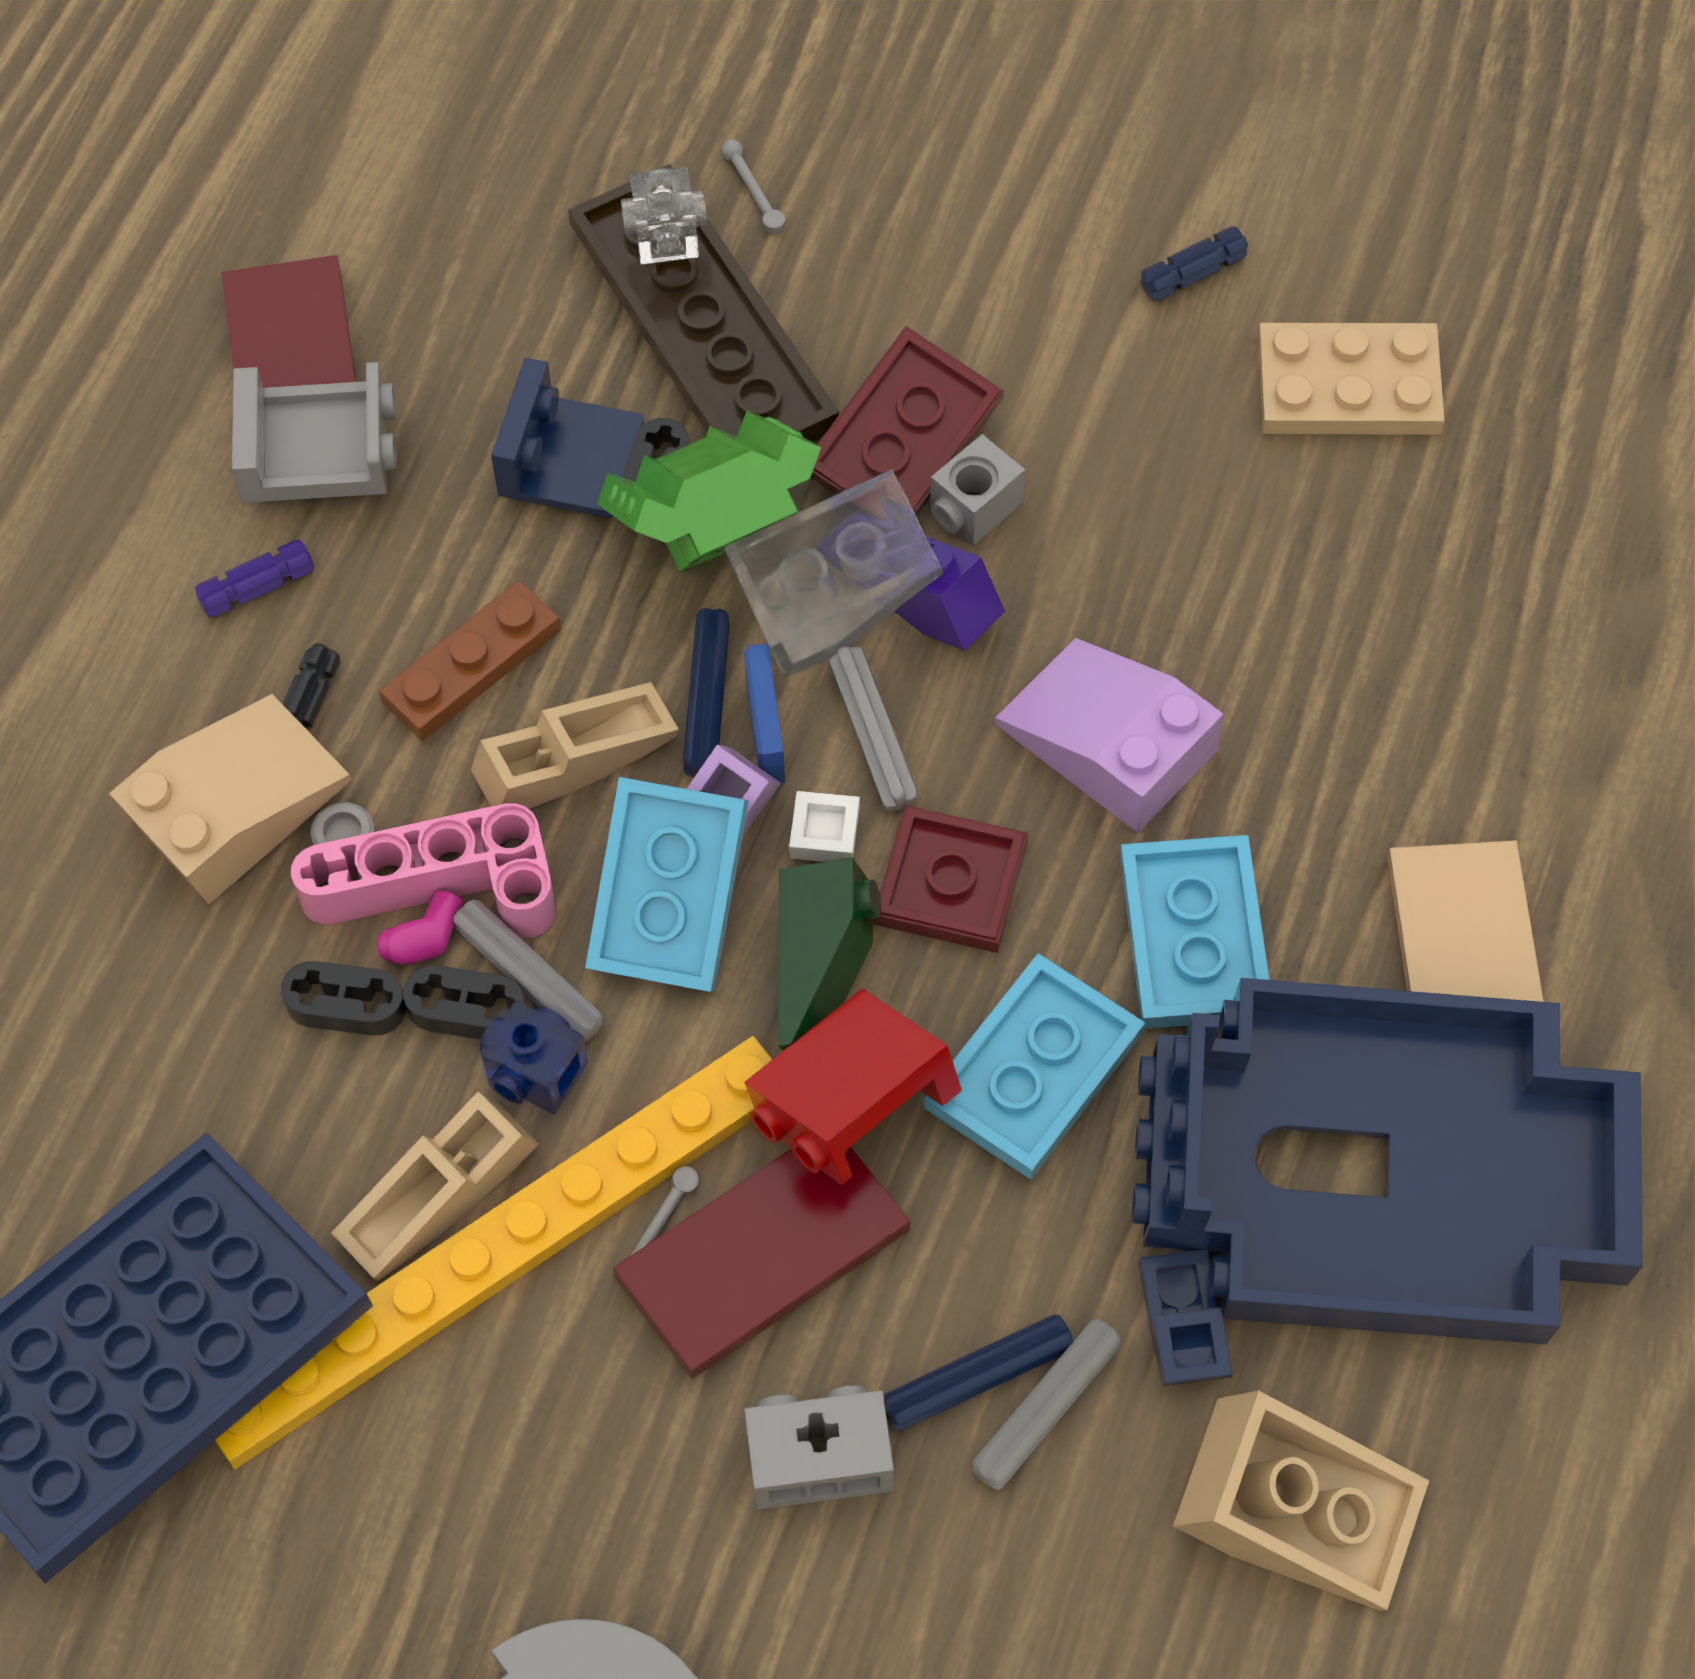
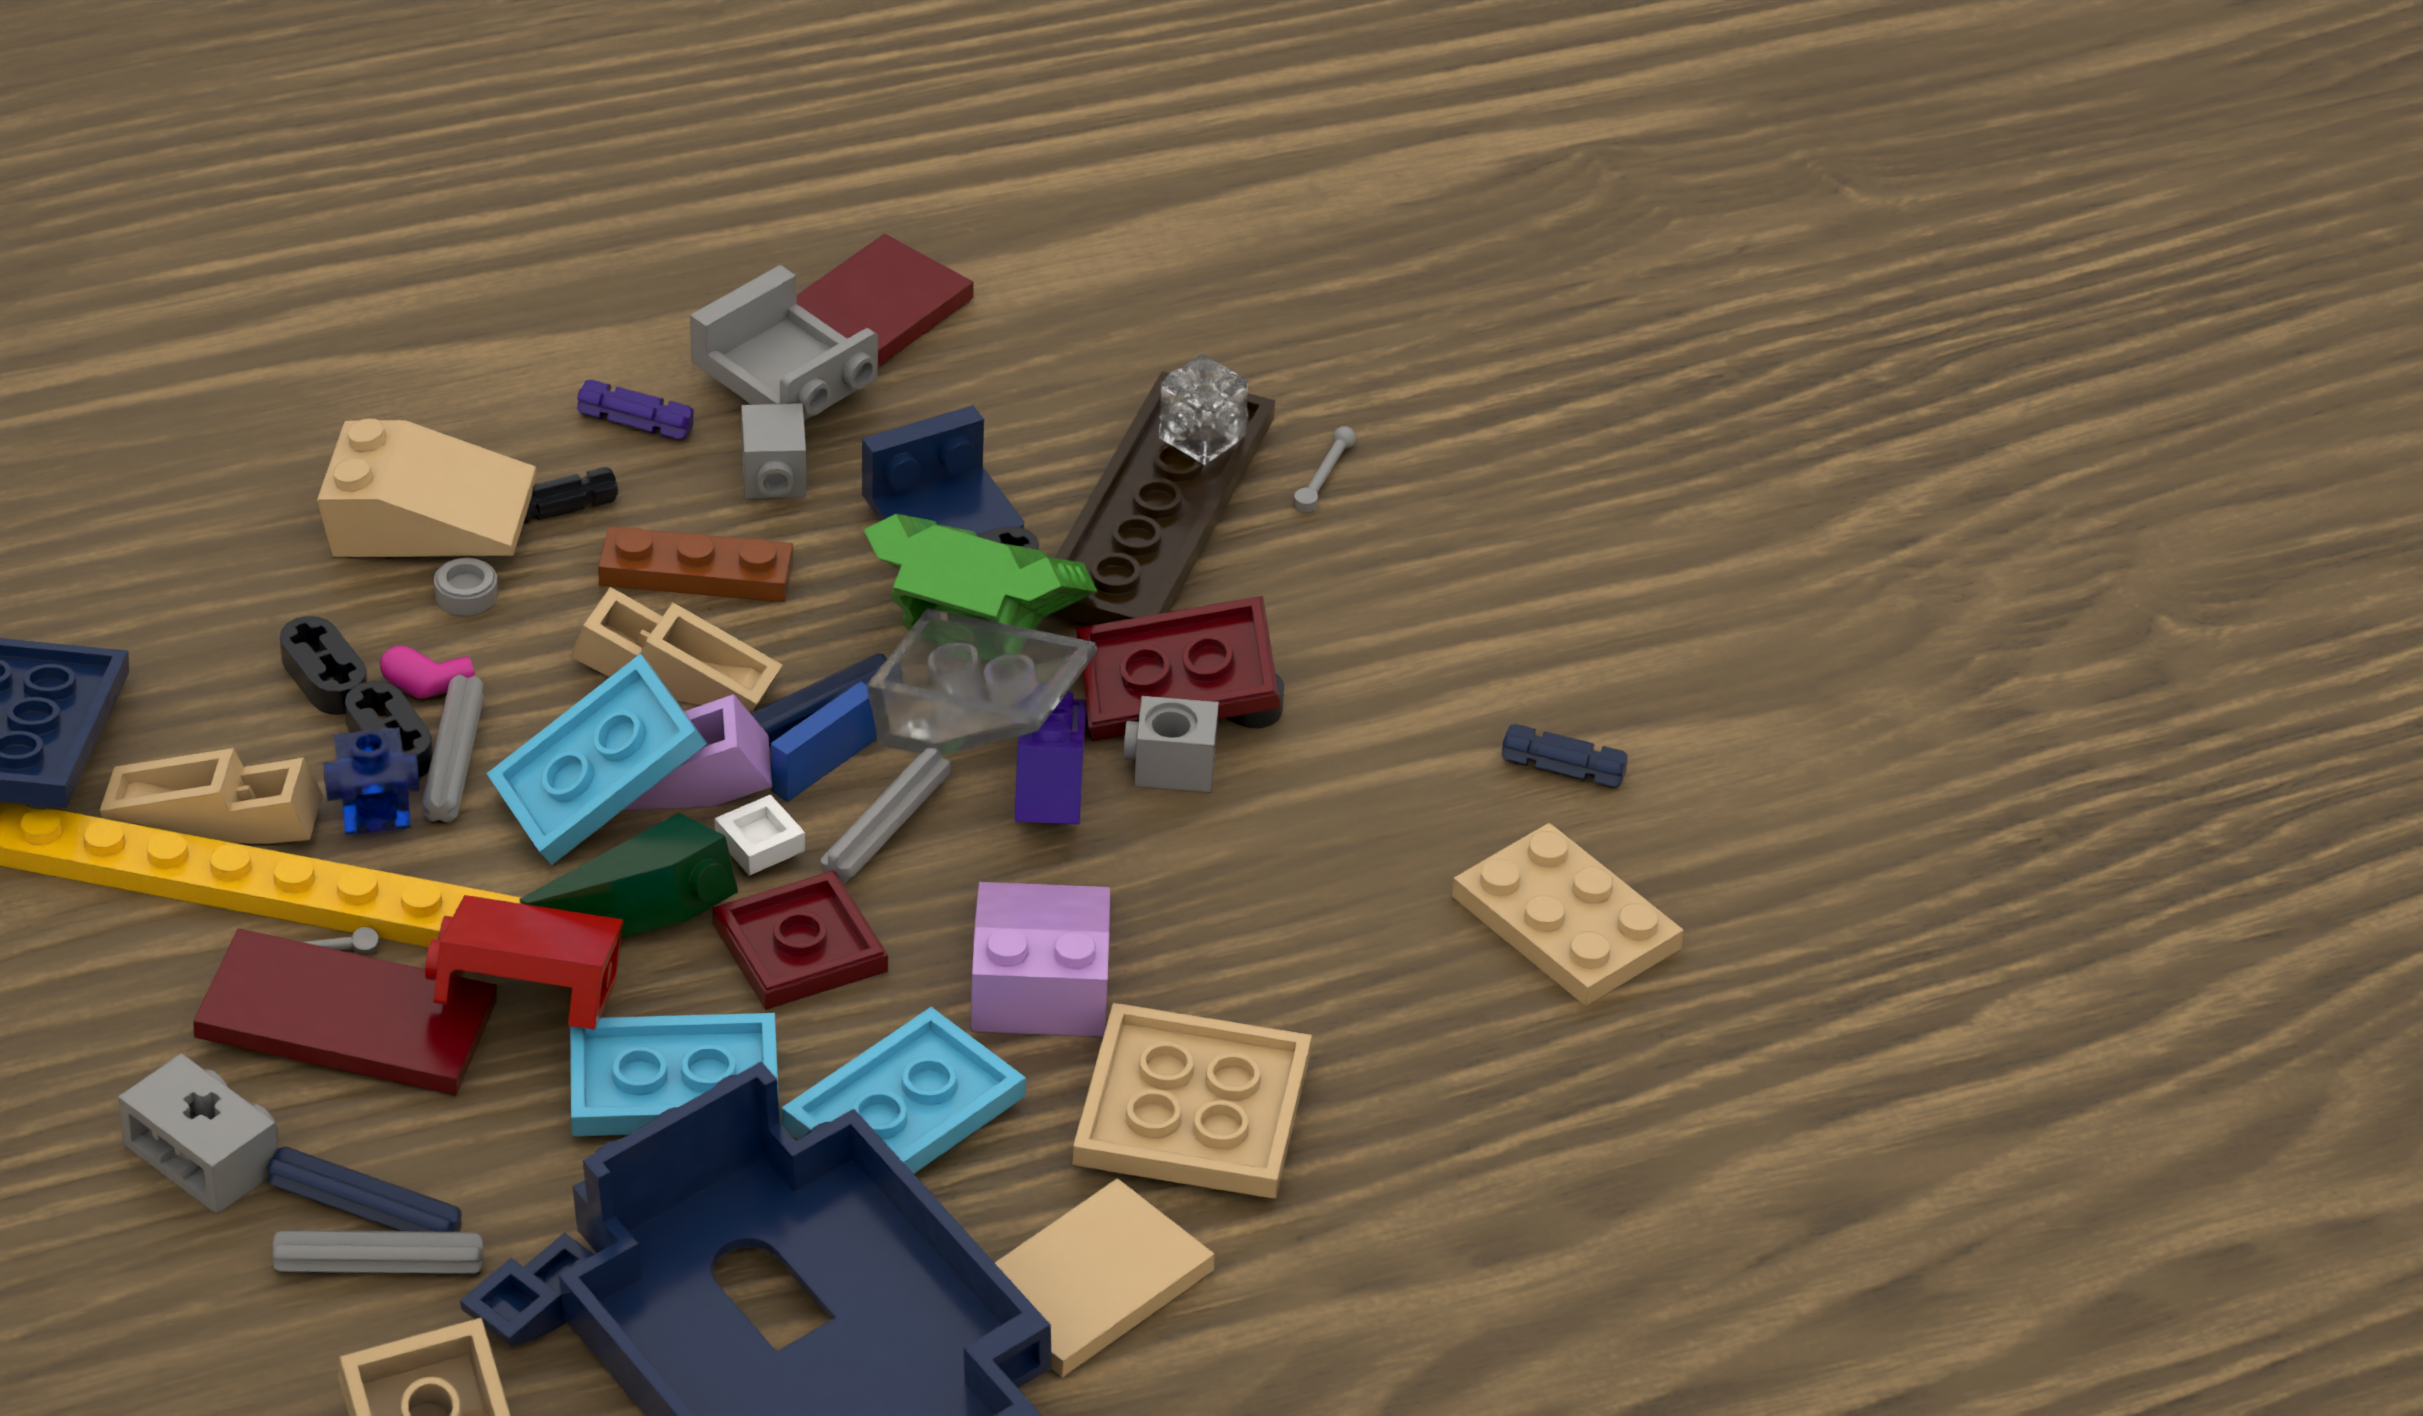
camera: 45 degrees right, 20 degrees down
(406, 520) = (773, 451): none -> light grey brick
(416, 852) = (521, 658): bright pink beam -> none
(1350, 743) = (1192, 1100): none -> tan plate

